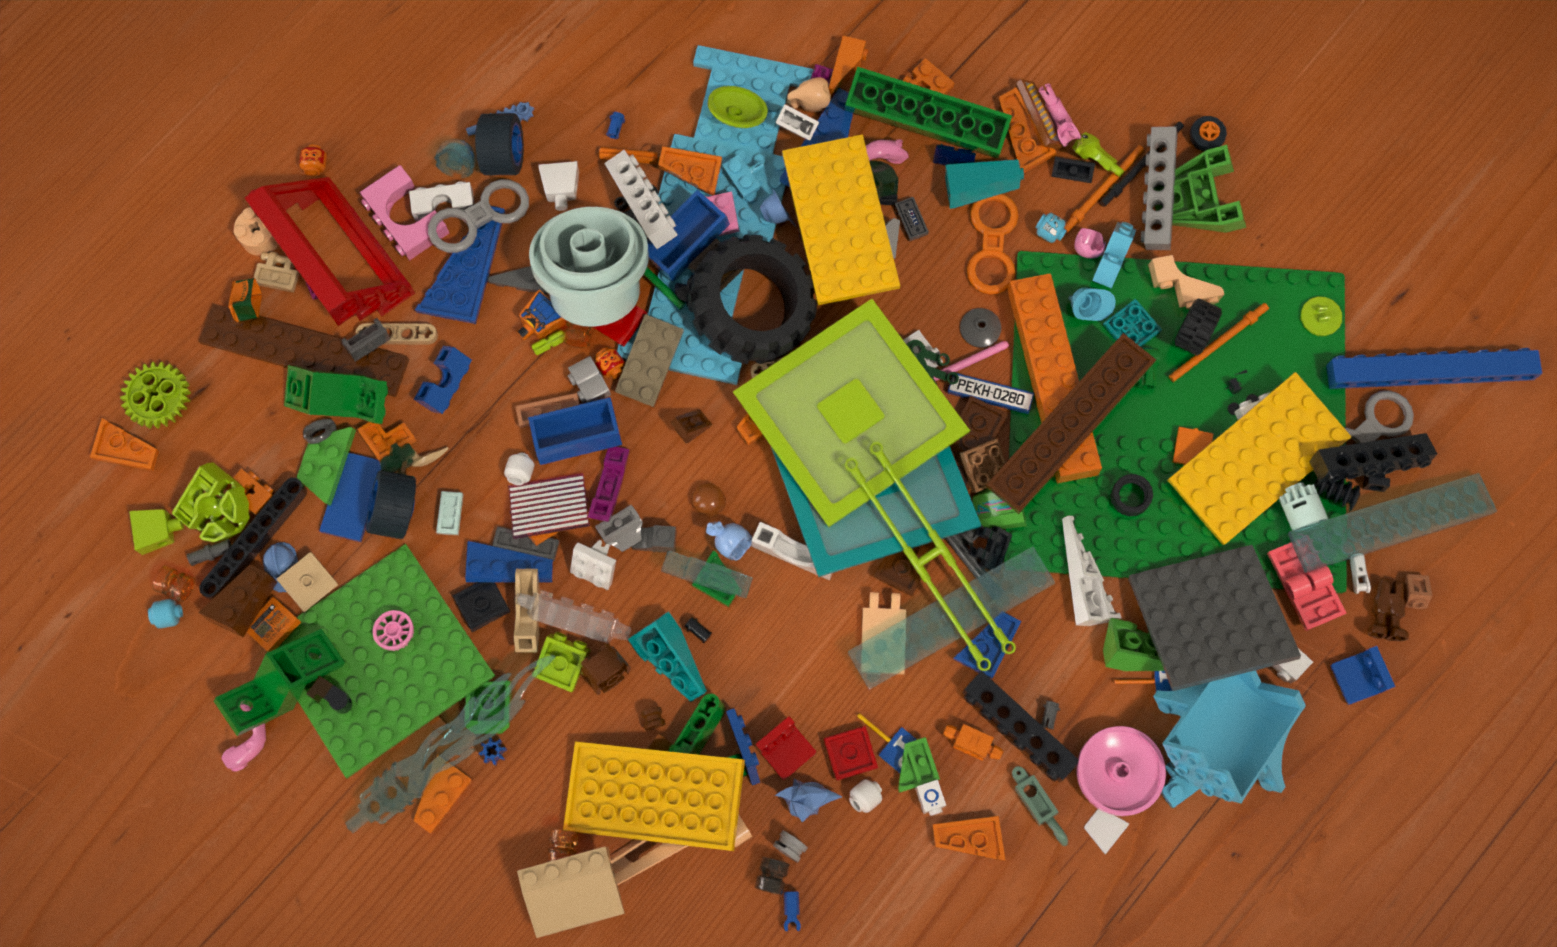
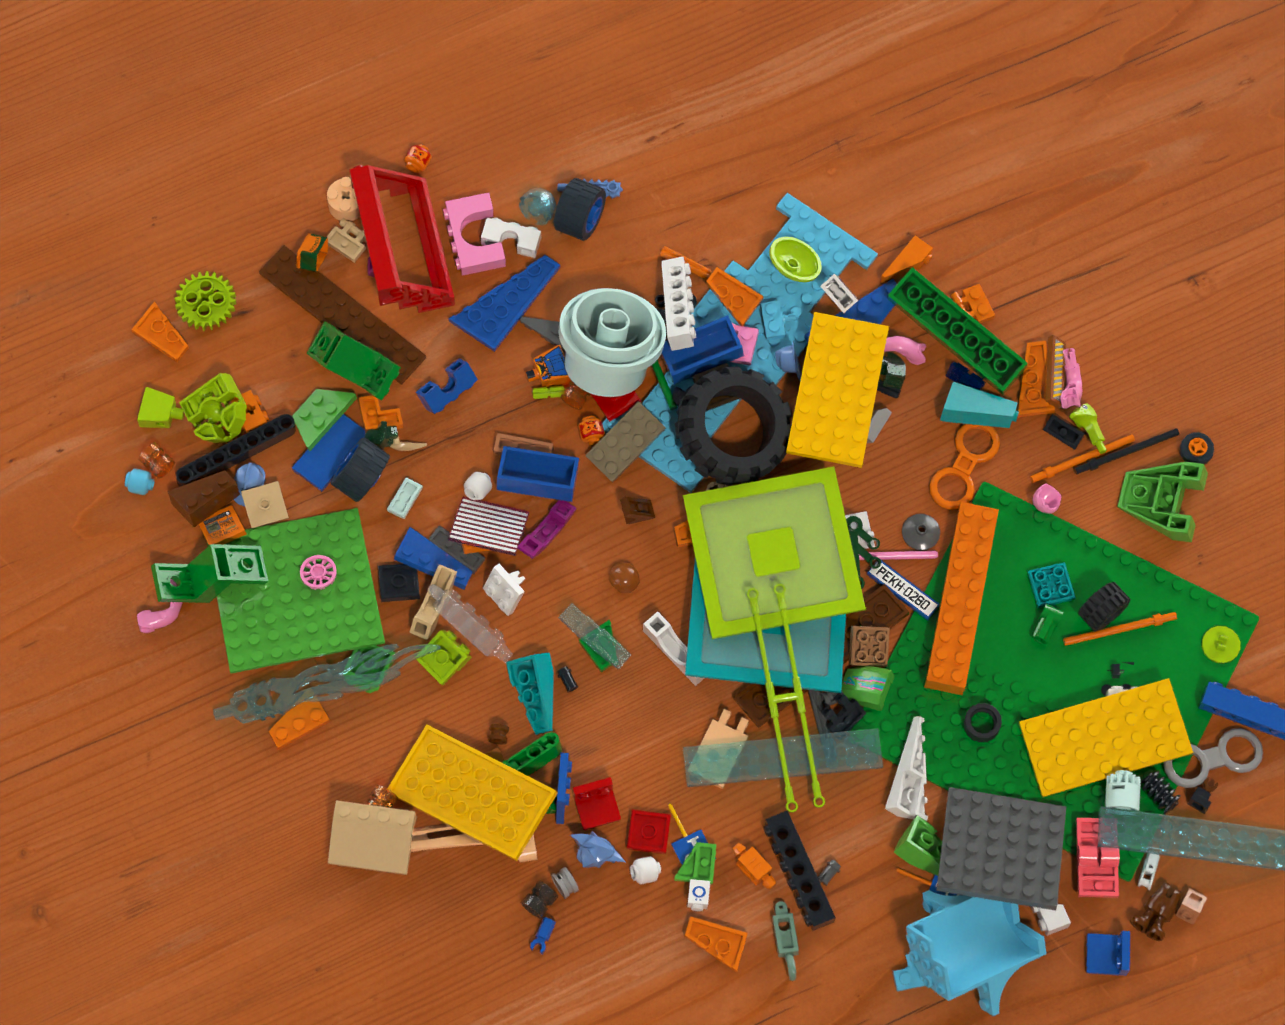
camera: 20 degrees right, 5 degrees down
(209, 552) = (195, 447): dark grey pin -> none
(310, 430) = (335, 383): dark grey piece -> none
(337, 699) = (246, 600): leg -> none
(366, 340) = (398, 327): dark grey hinge -> none
(398, 328) = (426, 330): tan beam -> none
(478, 215) = (536, 261): light grey bar -> none
(494, 758) = (359, 700): blue gear -> none
(560, 182) = (617, 262): white torso -> none
(588, 380) = (567, 437): light grey brick -> none
(604, 669) = (476, 676): reddish brown brick -> none
(617, 120) = (688, 229): blue pin -> none
(622, 529) = (541, 570): light grey slope -> none
(657, 539) = (565, 590): dark grey arch -> none
(730, 539) = (627, 616): light blue piece -> none
(811, 95) = (864, 275): light nougat piece -> none
(821, 71) = (881, 262): magenta tile -> none
(911, 219) = (903, 415): tile -> none
(990, 645) = (804, 795): blue wing -> none
(1051, 227) = (1020, 472): medium azure head -> none
(1070, 423) = (955, 638): reddish brown plate -> none
(1092, 304) = (1024, 551): medium azure piece -> none
(1105, 829) = (833, 984): white sticker -> none
(1114, 254) = (1069, 512): medium azure arch -> none
(1121, 771) = (866, 940): bright pink dish -> none
(1161, 238) = (1113, 520): light grey brick -> none
(1165, 274) = (1100, 553): light nougat arch -> none
(1189, 444) = (1053, 701): orange piece -> none
(1373, 458) = (1203, 777): black brick -> none

